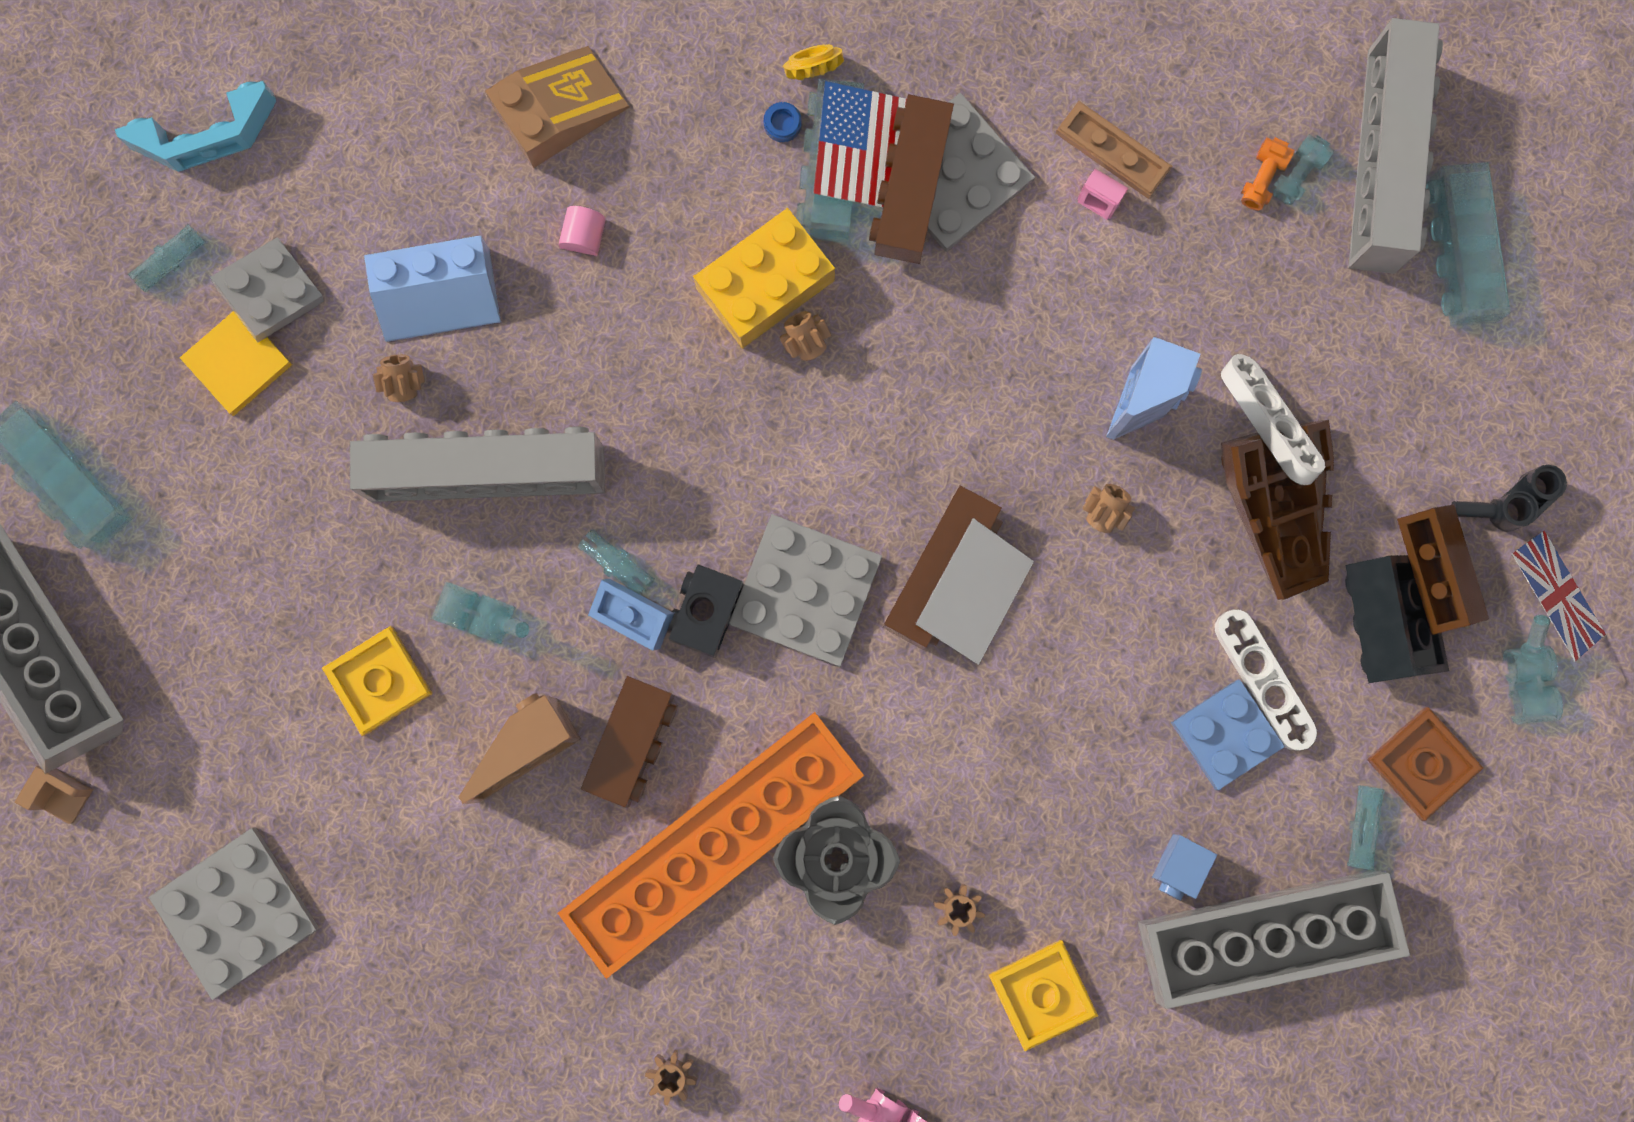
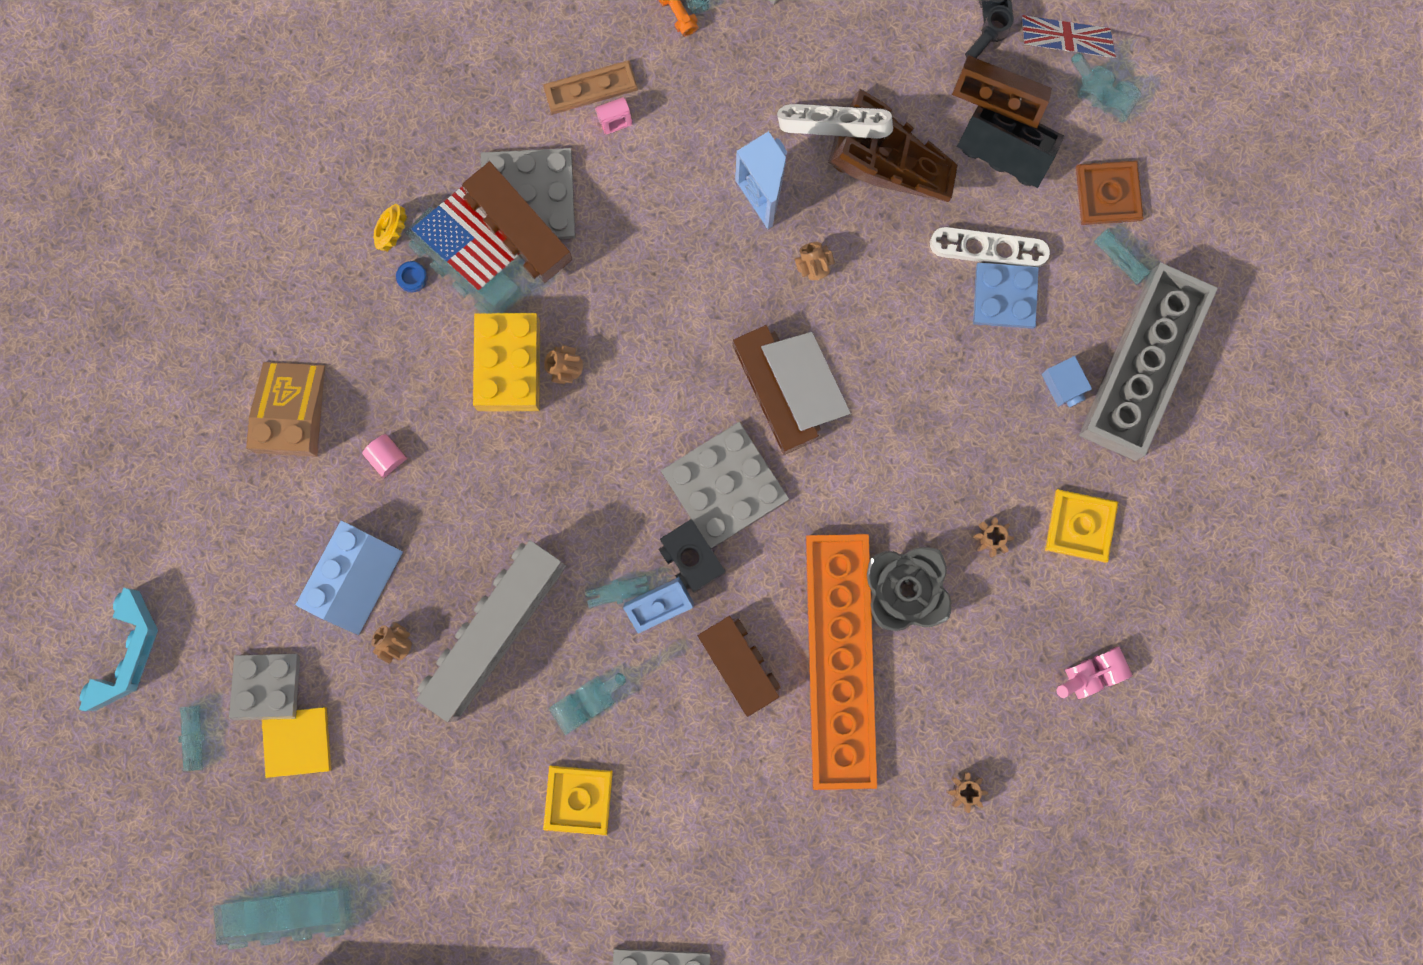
camera: 55 degrees left, 0 degrees up
(523, 743) = (692, 726): medium nougat slope -> none

